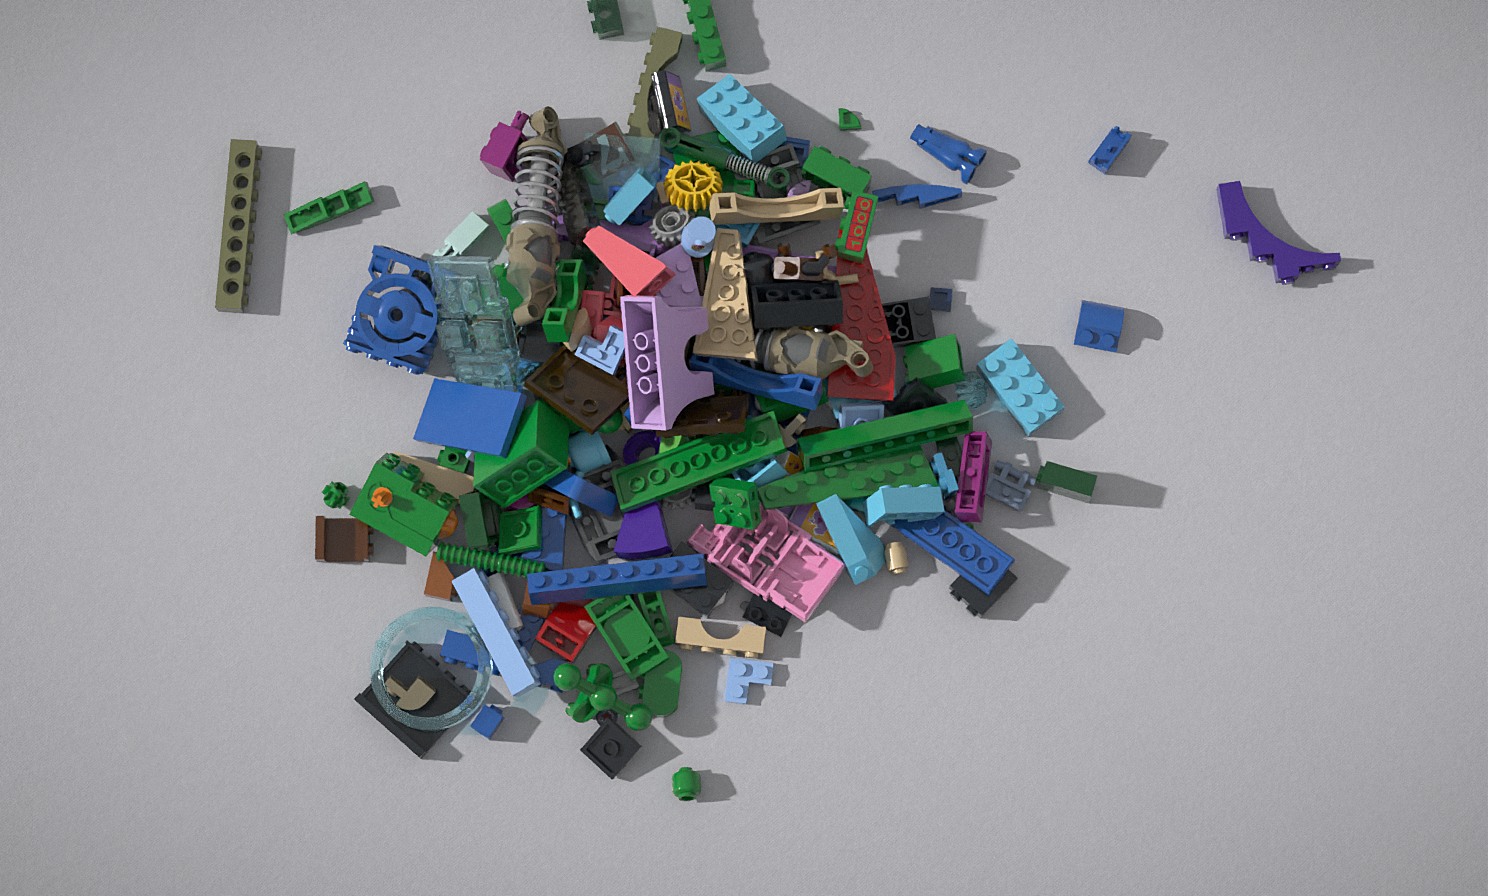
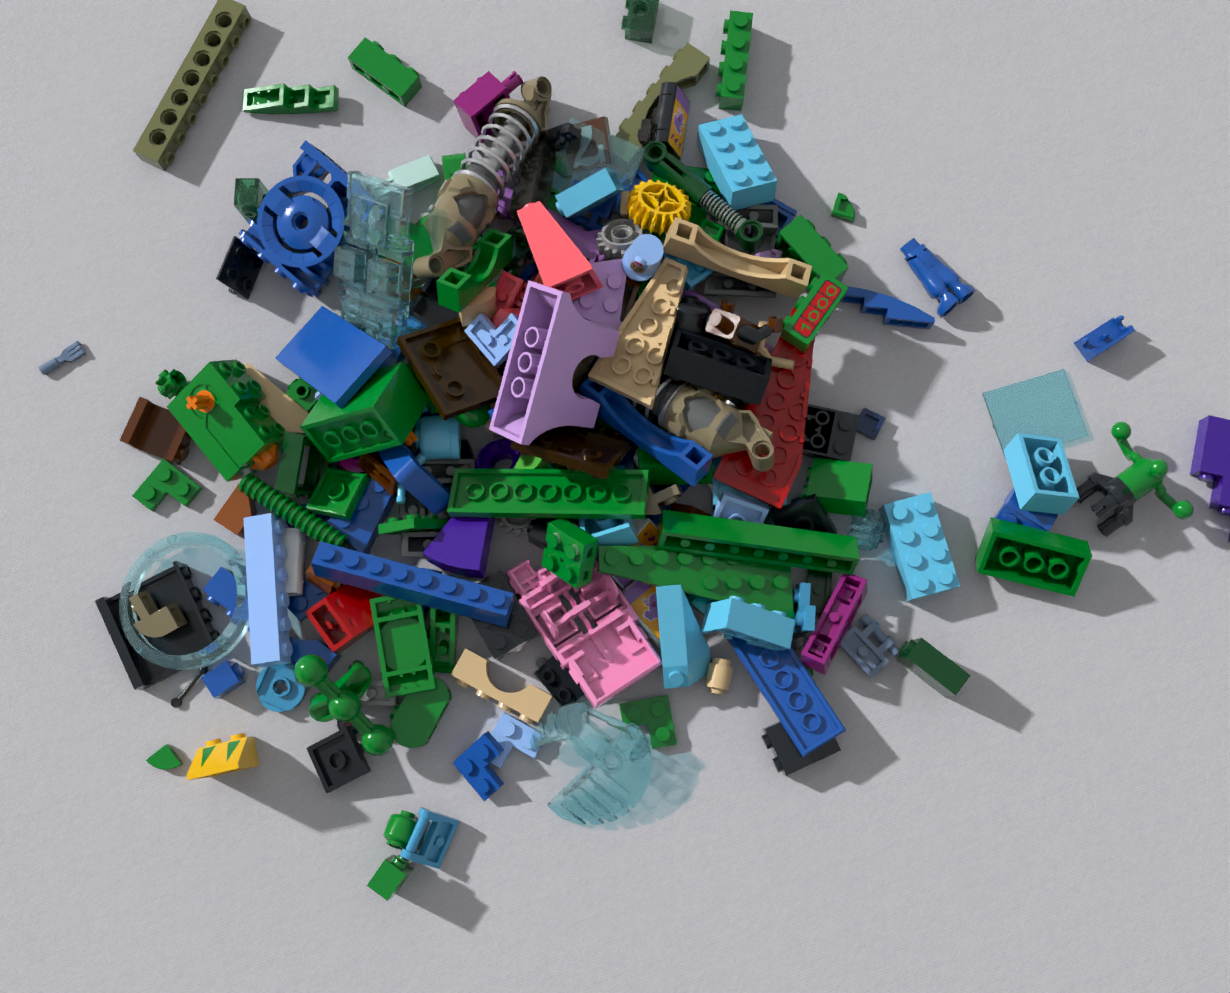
camera: 20 degrees right, 0 degrees up
(233, 505) = (69, 354): none -> sand blue piece
(339, 310) = (249, 196): none -> clear green brick
(354, 373) = (240, 268): none -> black hinge
(363, 579) = (163, 481): none -> green plate
(402, 151) = (385, 71): none -> green brick
(454, 757) = (177, 702): none -> black hinge
(465, 806) = (165, 758): none -> green tile
(518, 782) = (224, 757): none -> yellow slope
(546, 700) = (268, 691): none -> dark azure plate
(595, 530) = (412, 523): none -> green plate
(601, 280) = (529, 270): none -> blue tile
(693, 820) = (390, 876): none -> green brick
(717, 780) = (436, 839): none -> dark azure plate
(724, 707) = (475, 765): none -> blue plate
(835, 684) = (600, 787): none -> clear light blue piece
(854, 610) = (656, 714): none -> green plate
(1077, 237) = (1036, 407): none -> clear light blue piece
(1096, 288) = (1040, 474): none -> medium azure brick
(1115, 359) = (1033, 557): none -> green brick
(1172, 270) = (1129, 486): none -> wheel

